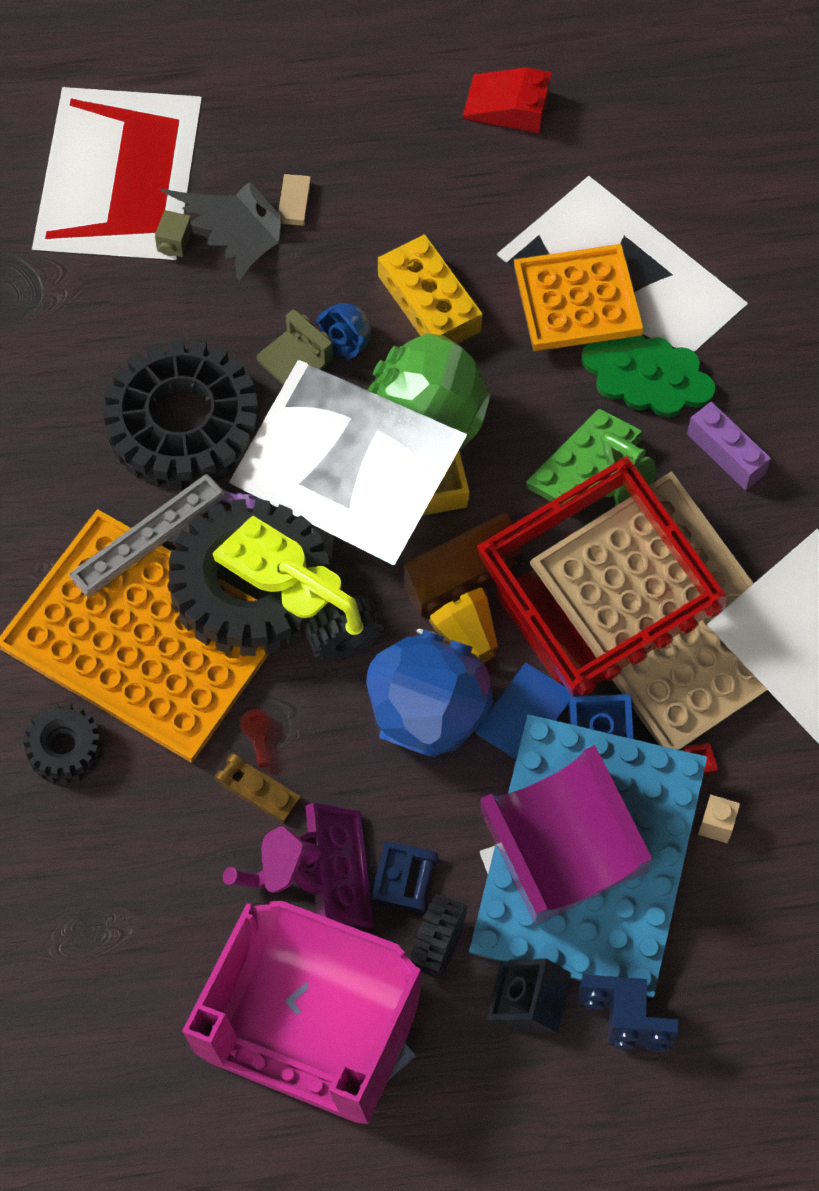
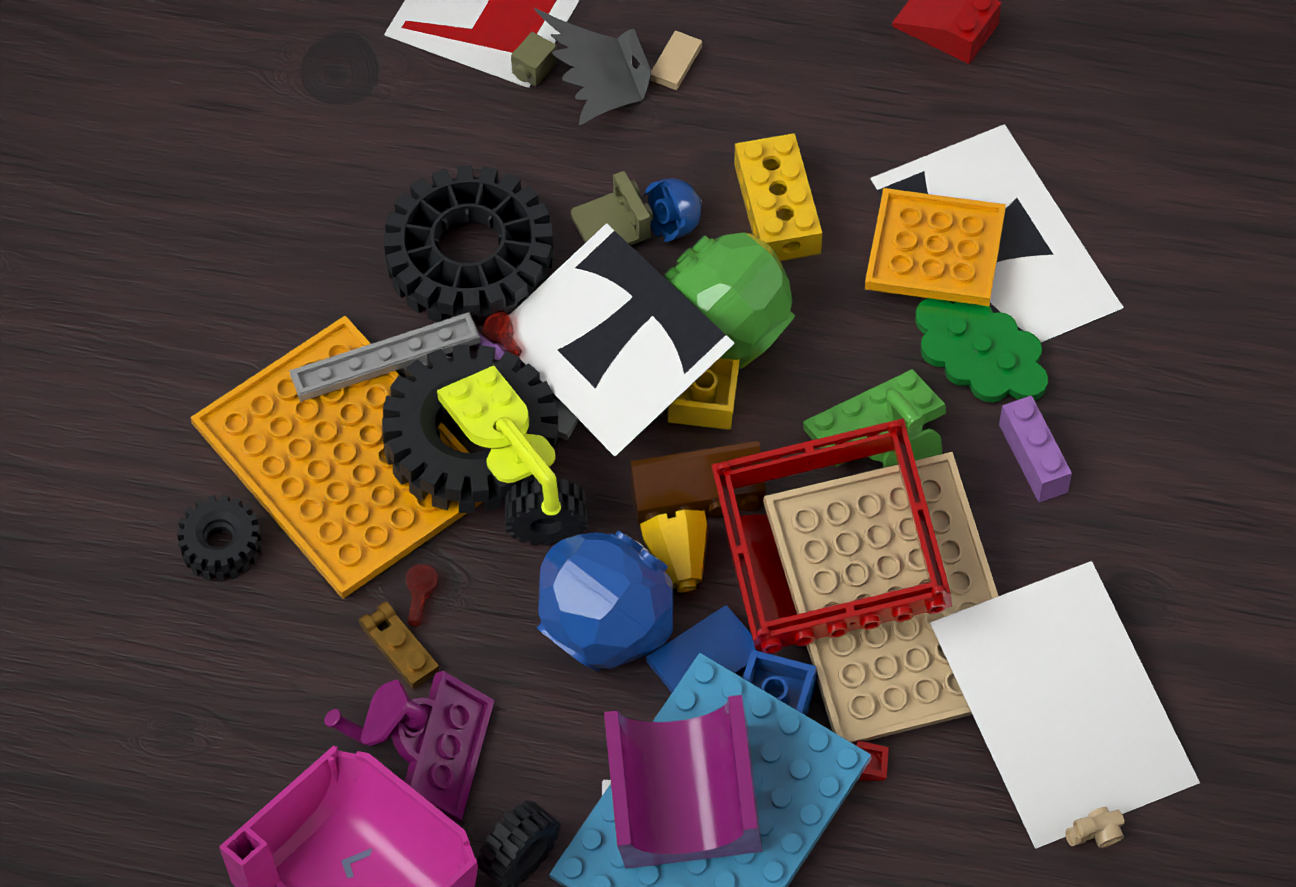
camera: 20 degrees right, 5 degrees down
(237, 480) = (500, 329): none -> clear red plate
(394, 876) = (505, 771): dark blue plate -> none
(719, 818) = (864, 825): tan brick -> none

